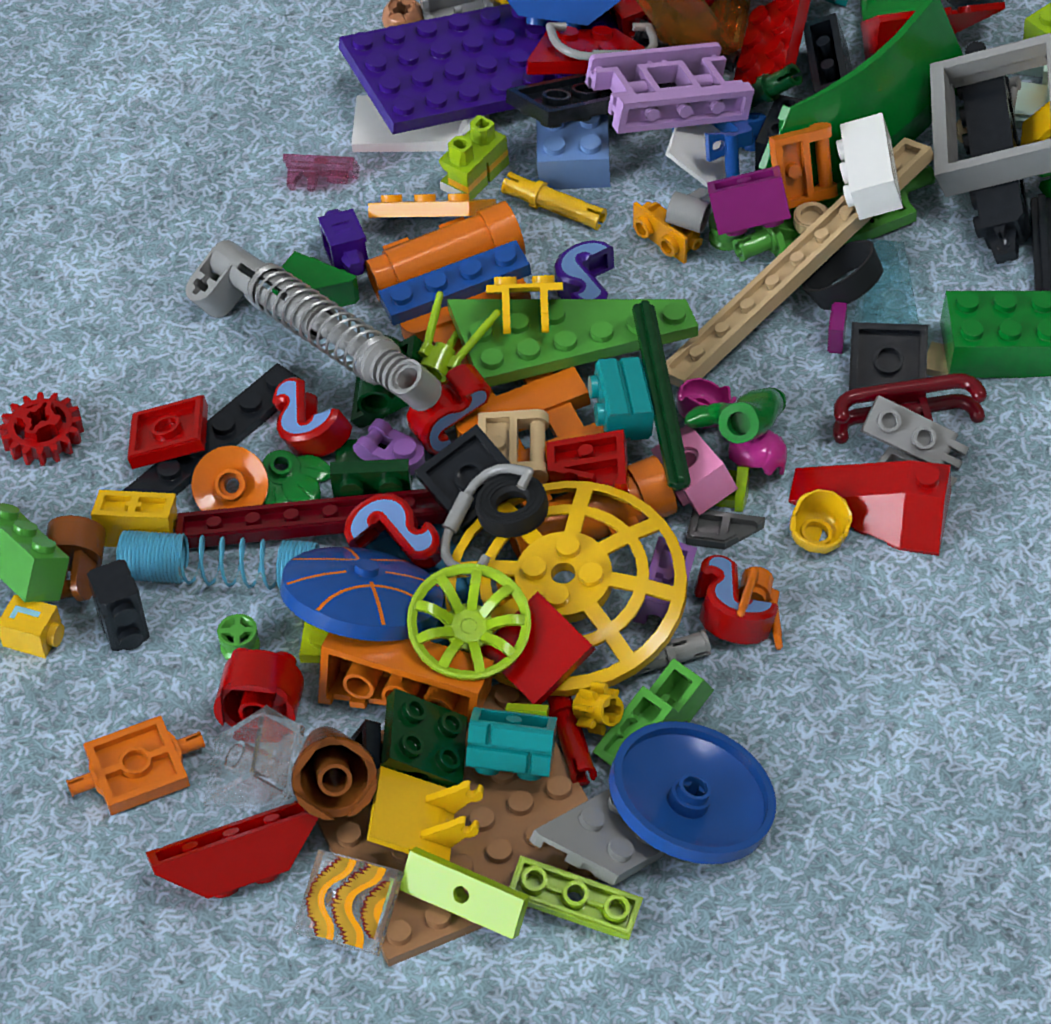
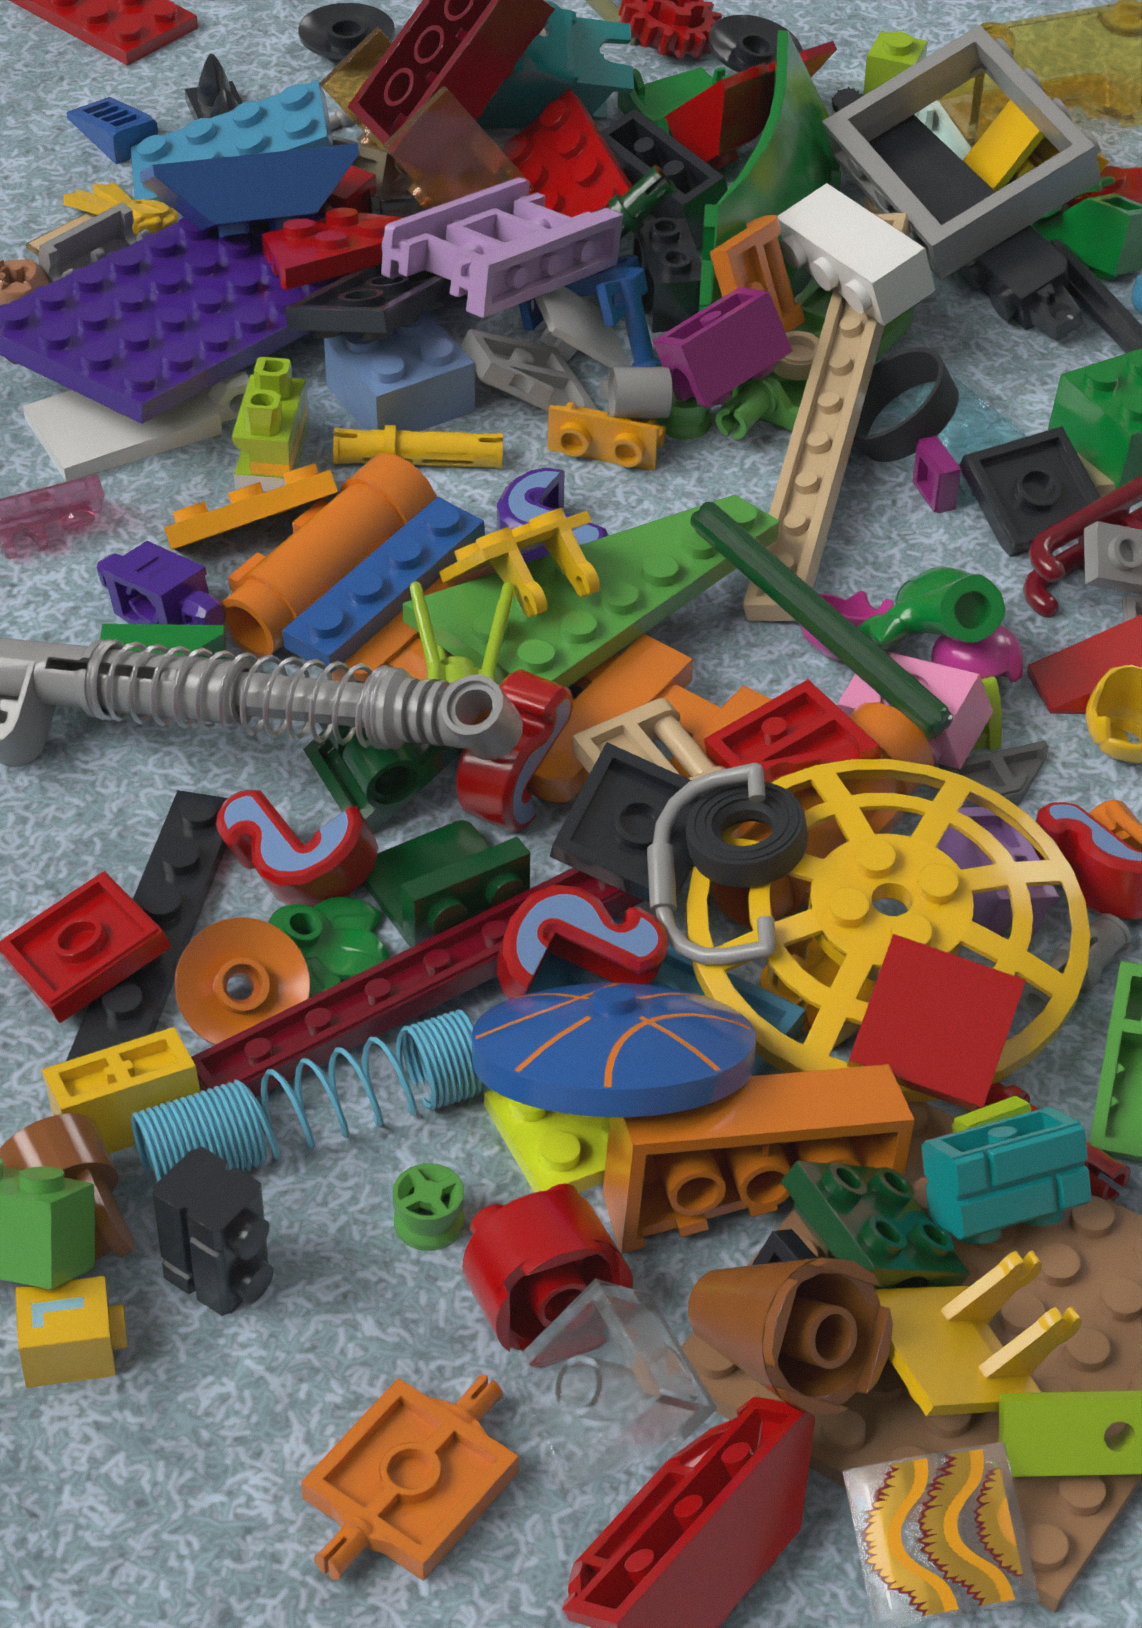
camera: 35 degrees left, 5 degrees down
(398, 445) = (466, 831): medium lavender plate -> none
(469, 624) = (822, 1026): lime wheel -> none
(552, 27) = (370, 238): light grey piece -> none
(597, 707) = (1066, 1075): yellow gear -> none
(622, 397) = (762, 641): teal brick -> none
(644, 171) = (525, 370): none -> light grey wing

